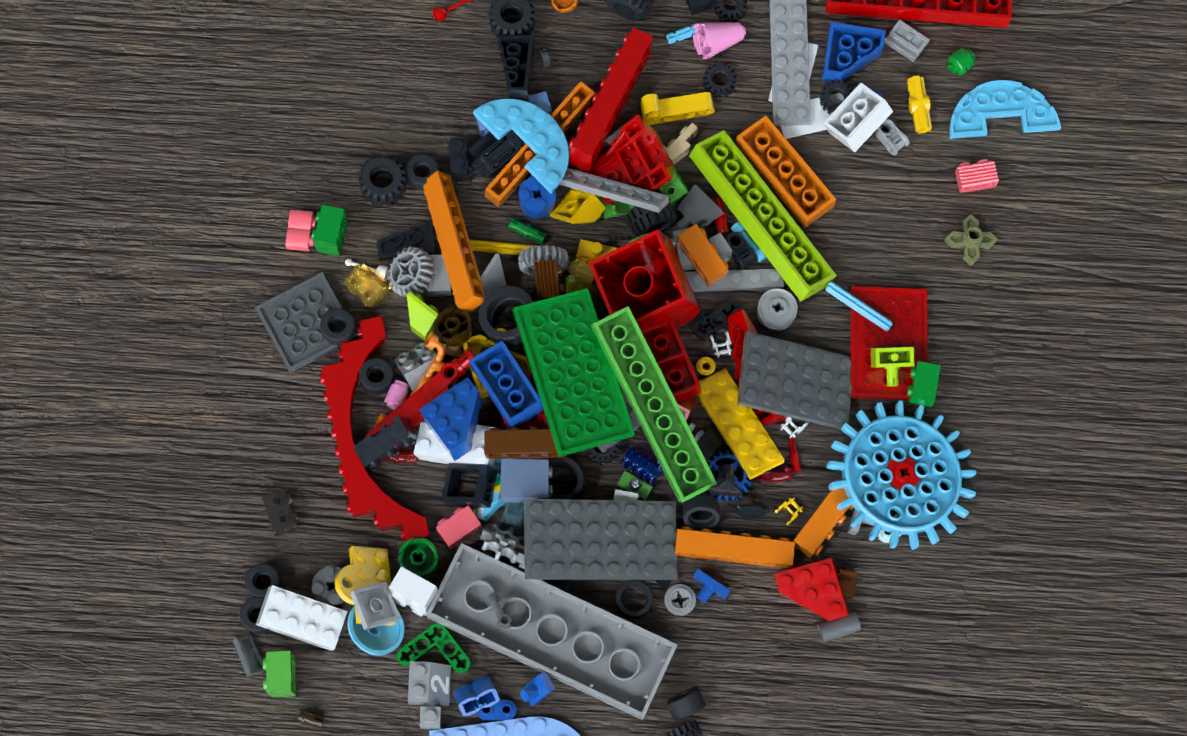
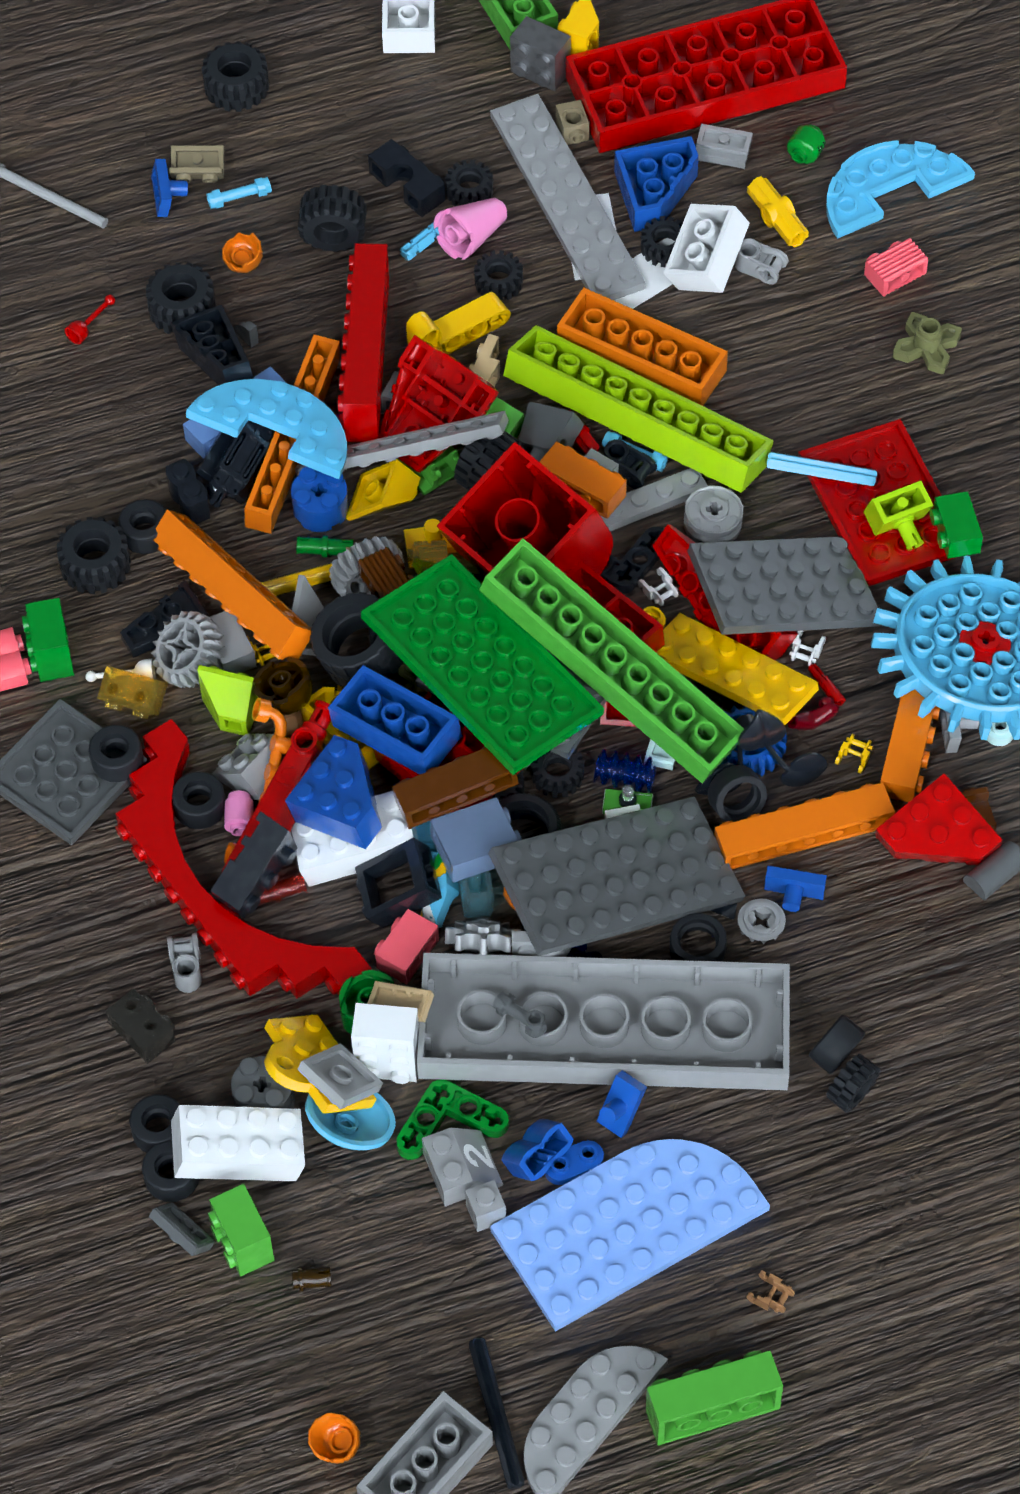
camera: 20 degrees left, 15 degrees down
(324, 476) = (185, 957): none -> light grey piece
(432, 570) = (402, 996): none -> tan plate

